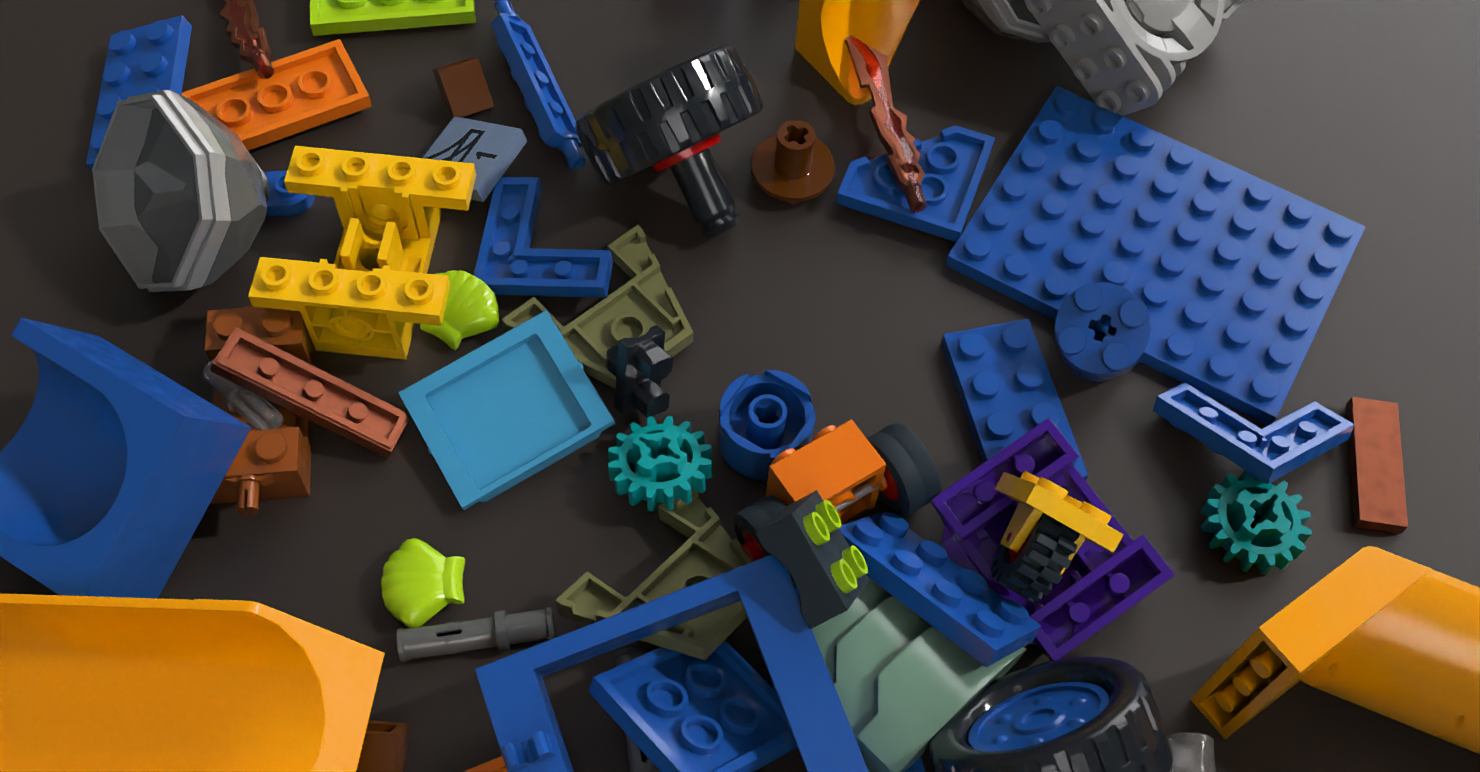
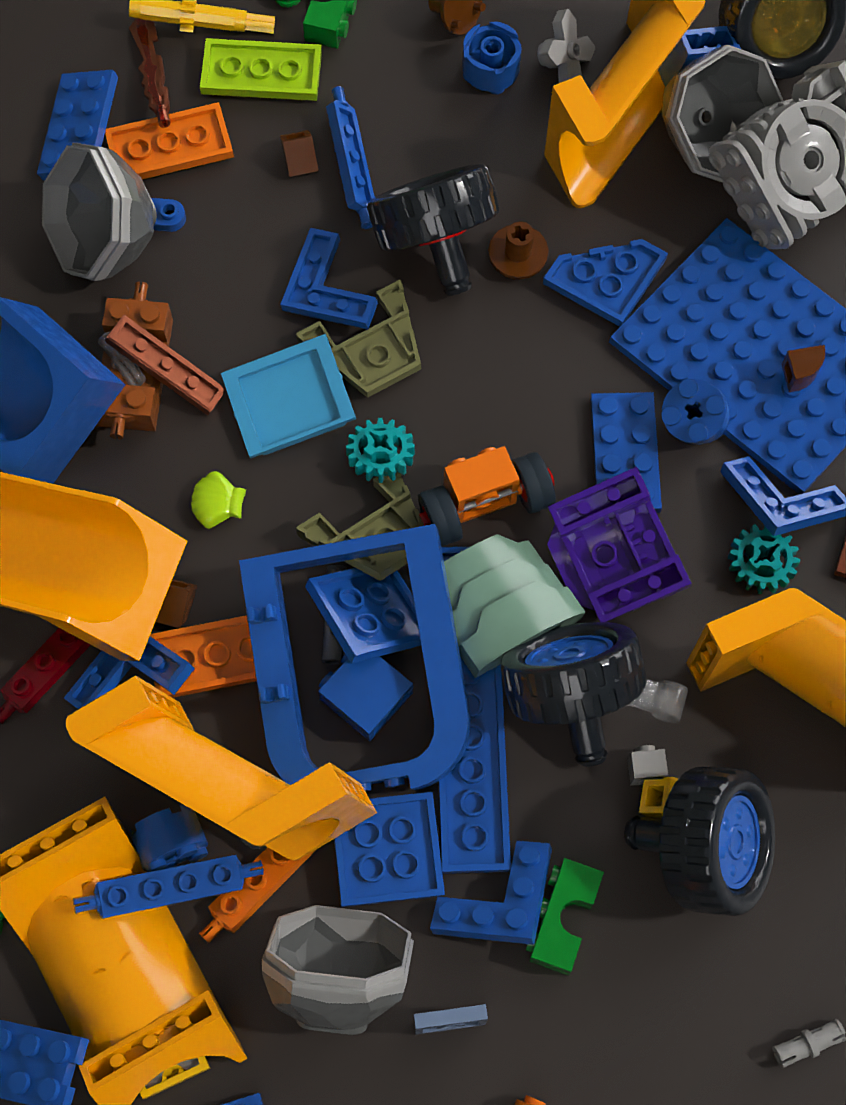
camera: 15 degrees right, 10 degrees up
(383, 258) = (232, 253): yellow piece -> none
(468, 311) = (269, 319): lime animal -> none
(476, 634) = (245, 539): dark grey pin -> none
(482, 143) = (293, 210): sand blue tile -> none
(650, 359) = (385, 381): black hips -> none
(762, 419) = (442, 428): blue brick -> none
(817, 557) = (456, 530): black brick -> none
(889, 123) = (593, 229): copper sword -> none
(939, 589) = (534, 561): blue plate -> none
(1045, 534) = (610, 542): plate -> none
(1224, 248) = (802, 366): none -> reddish brown brick

